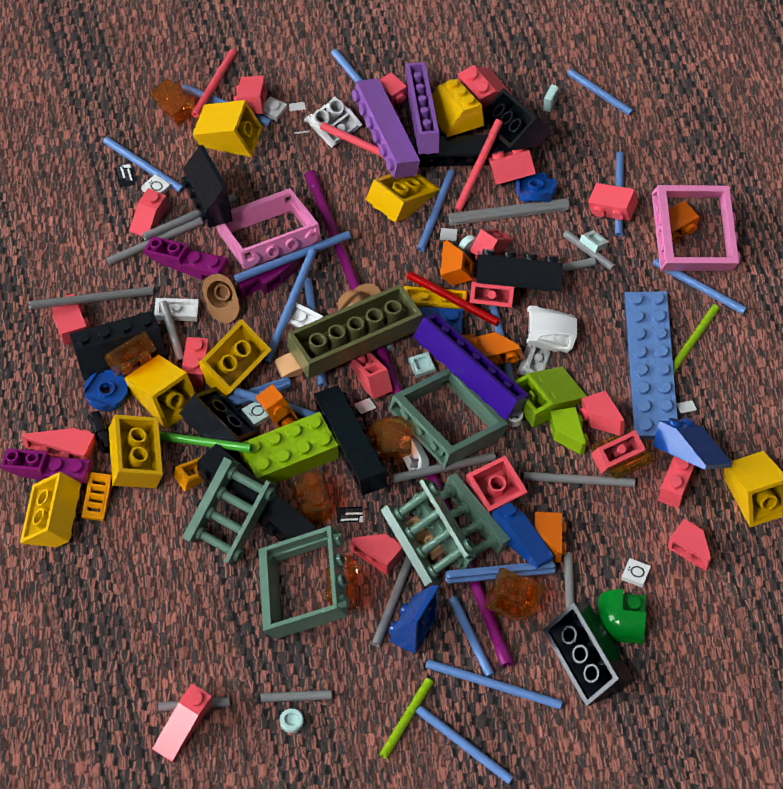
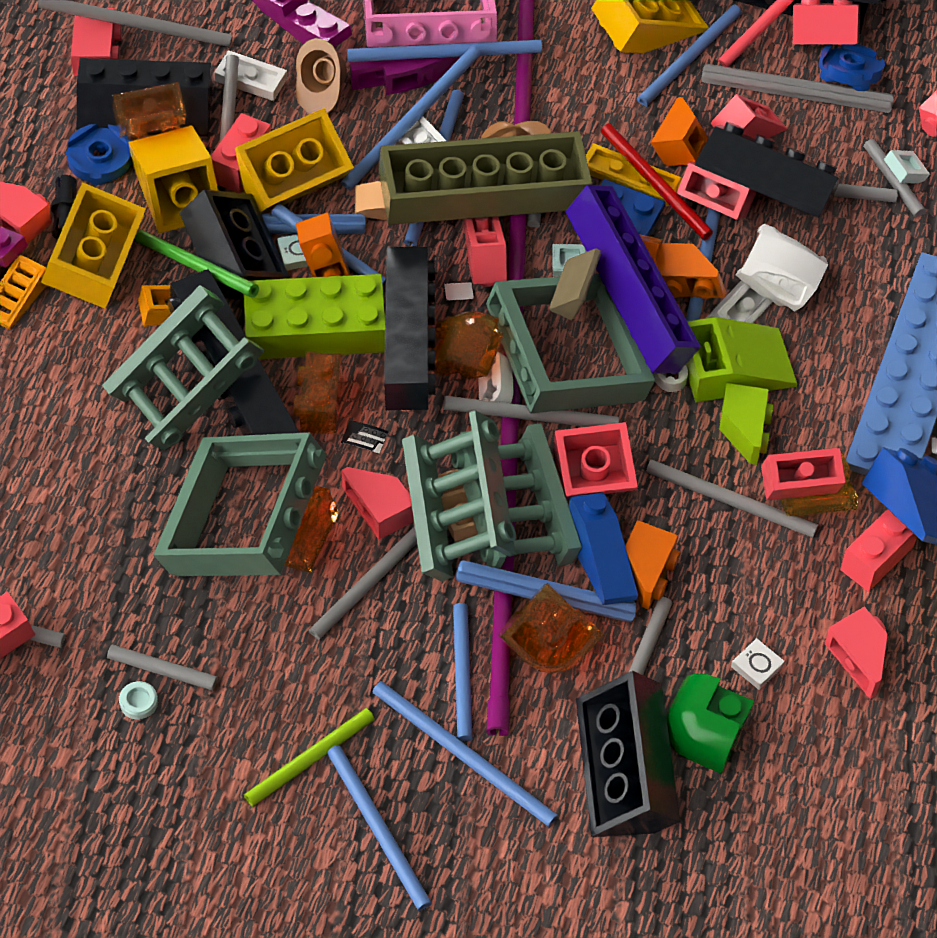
camera: 20 degrees right, 0 degrees up
(415, 620) = (385, 618): blue slope -> none
(439, 380) = (574, 284): none -> dark tan slope
(448, 234) = (692, 92): white sticker -> none
(466, 244) = (709, 112): light aqua tile -> none
(602, 413) = (806, 412): coral slope -> none

